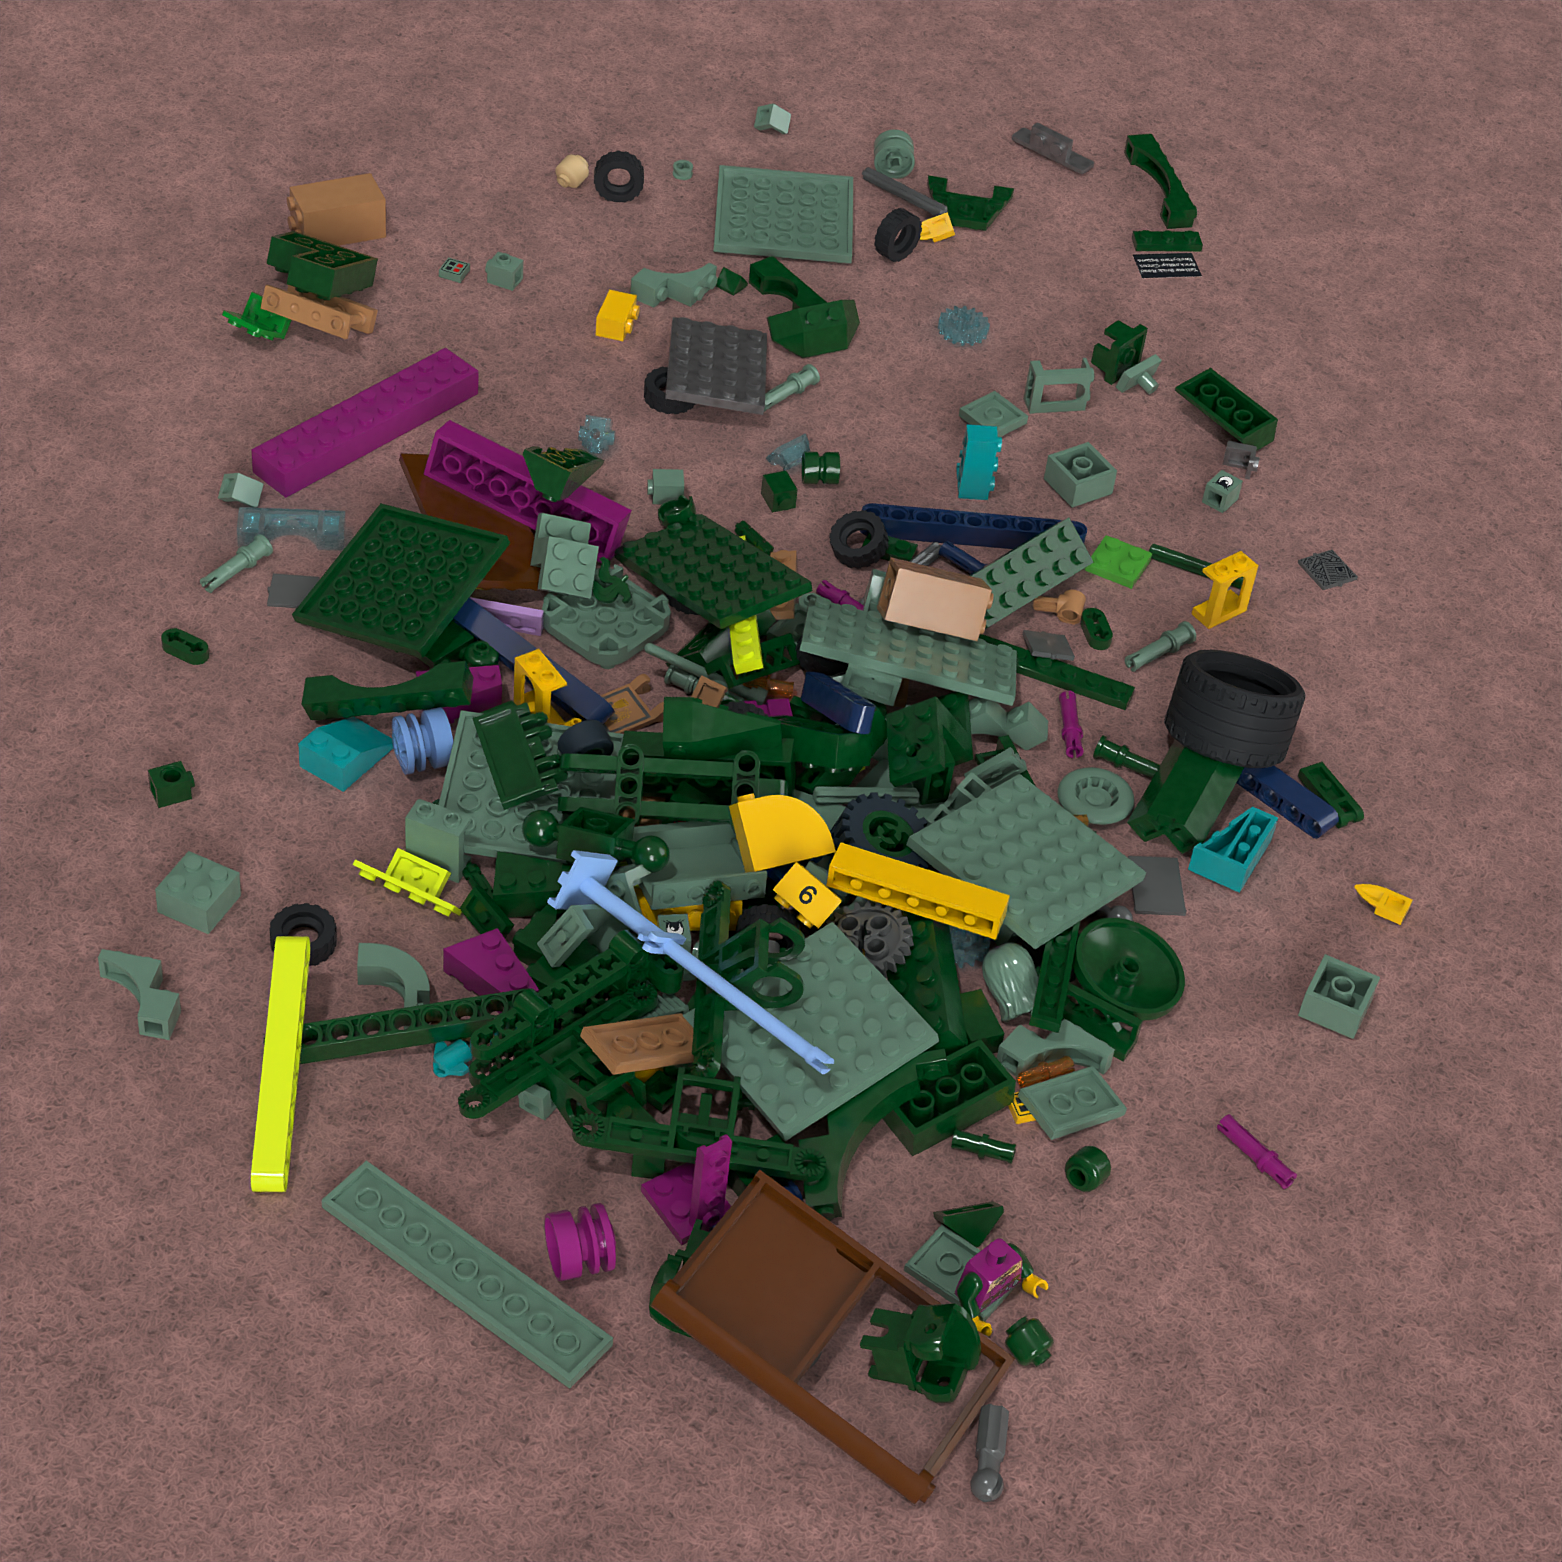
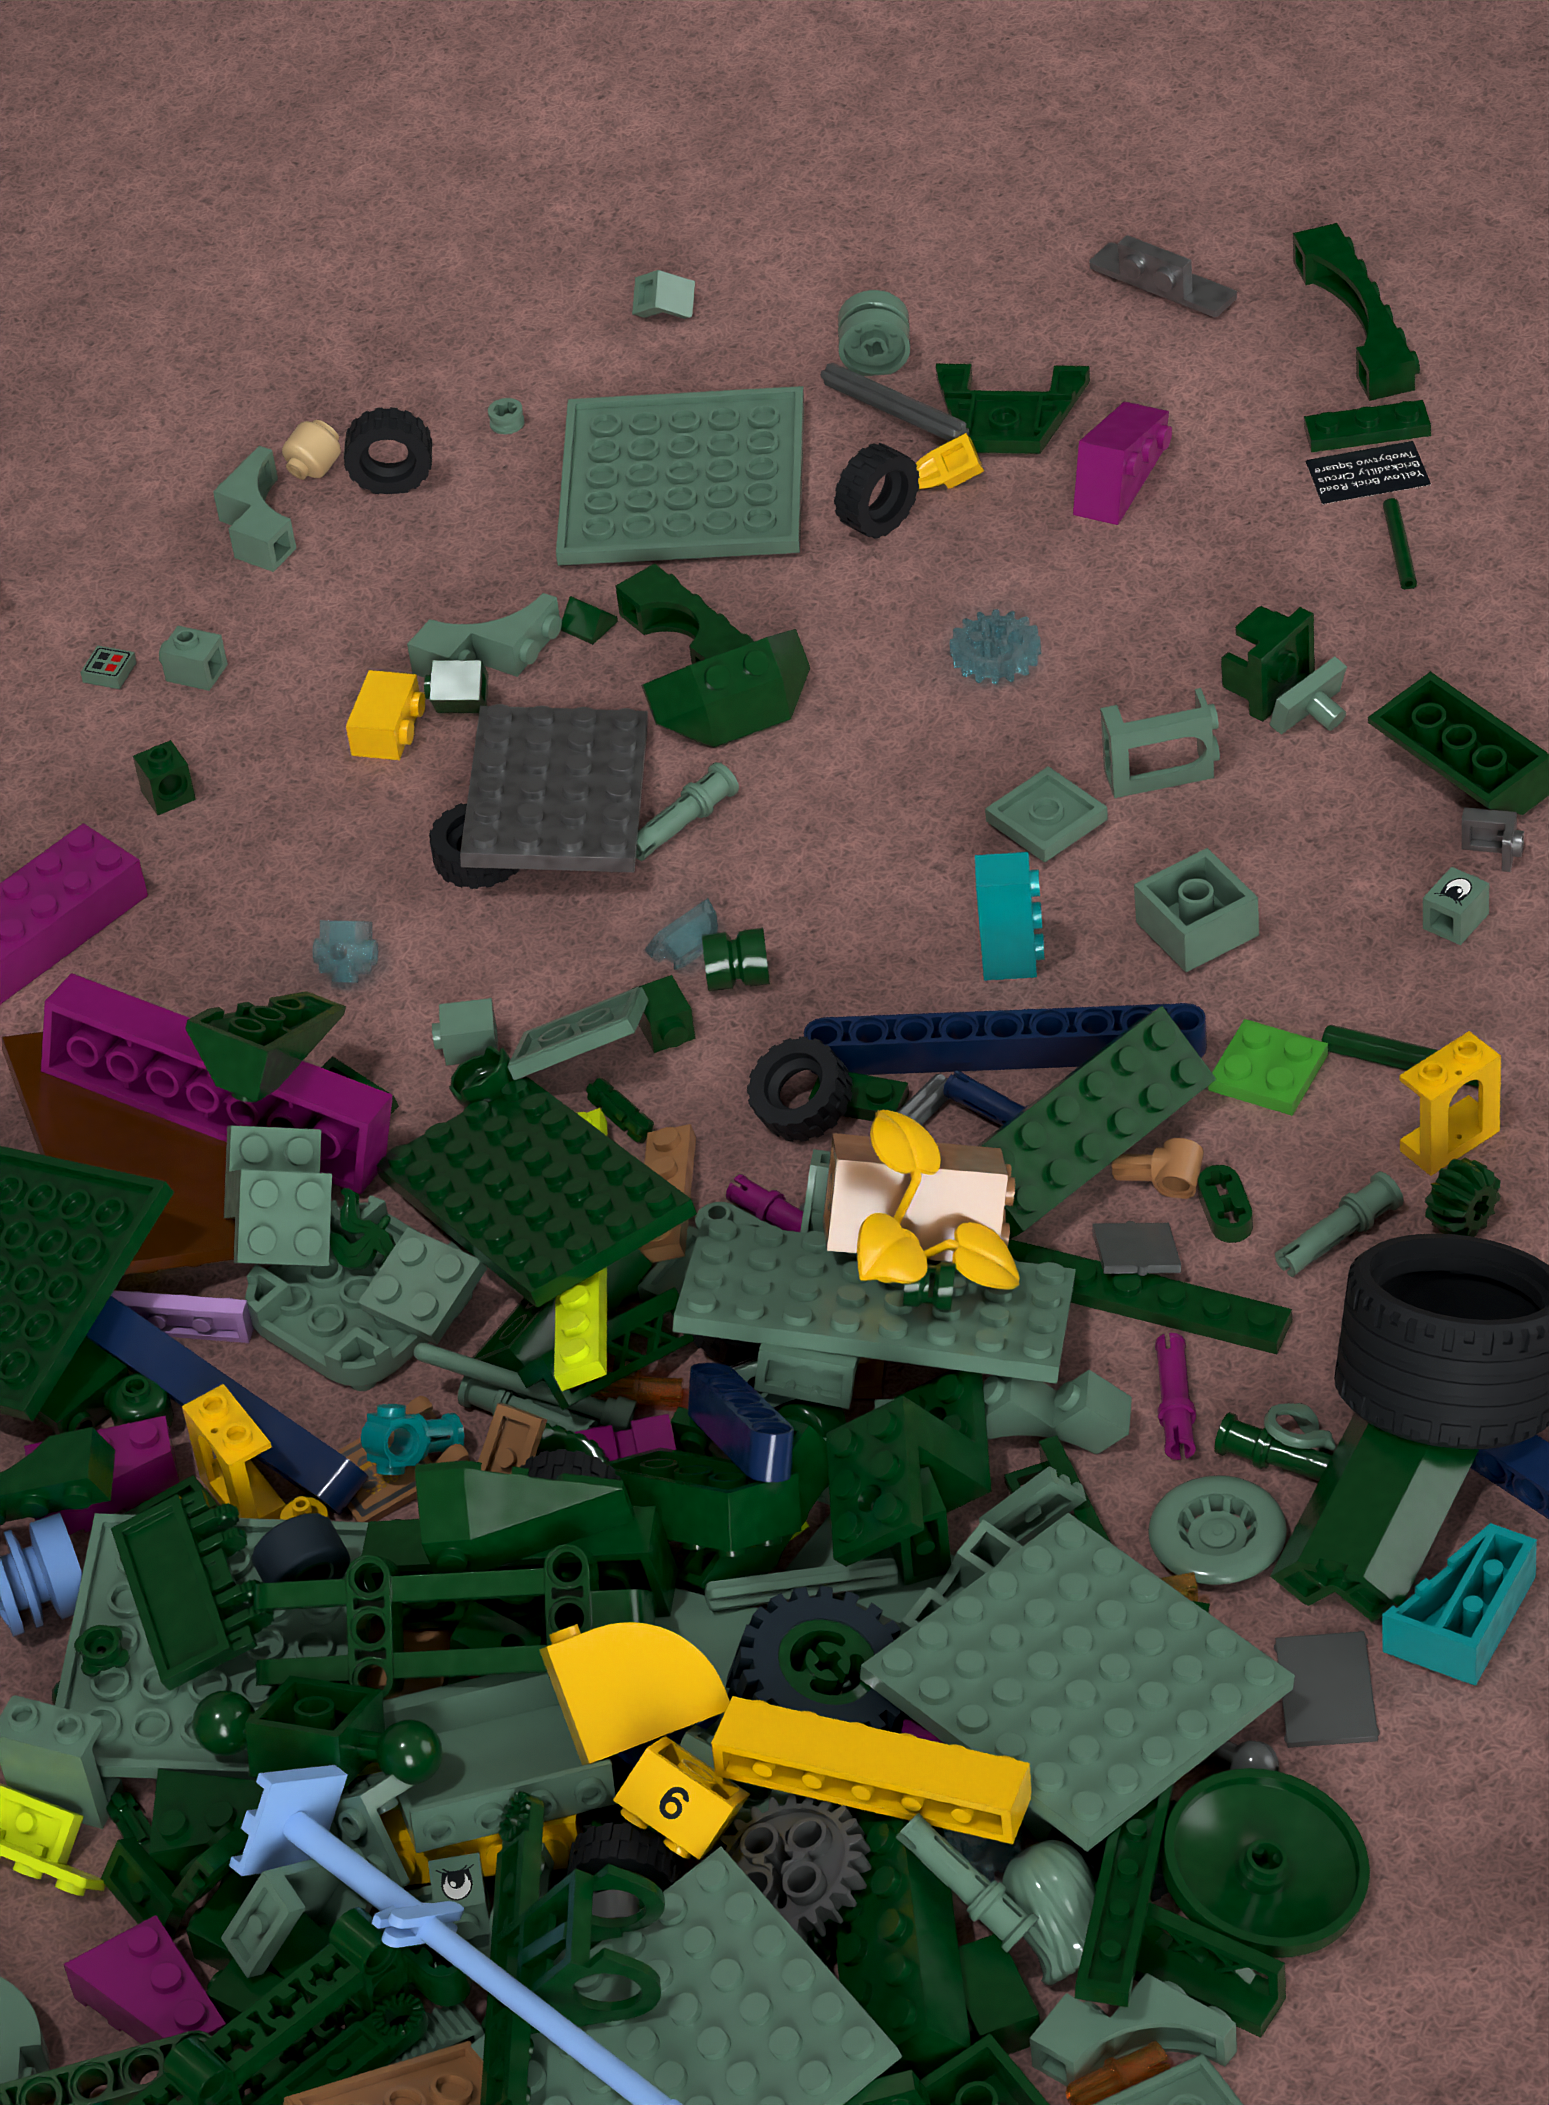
camera: 10 degrees right, 0 degrees up
(465, 782) = (97, 1639): none -> dark green plate
(489, 331) = (164, 777): none -> dark green brick
(527, 907) = (209, 1867): none -> dark green wing
(540, 209) = (257, 531): none -> sand green arch
(634, 694) = (412, 1437): none -> teal connector
(646, 614) = (422, 1285): none -> sand green plate
(658, 305) = (457, 686): none -> brick
(733, 493) = (578, 1032): none -> sand green tile
(930, 620) = (894, 1253): none -> yellow plant
(938, 643) = (917, 1292): none -> dark green wheel
(977, 968) = (984, 1898): none -> sand green pin
(1031, 239) = (1118, 459): none -> magenta wedge
(1144, 750) = (1306, 1421): none -> sand green piece
(1186, 304) = (1399, 544): none -> dark green piece
(1231, 636) = (1462, 1198): none -> dark green gear

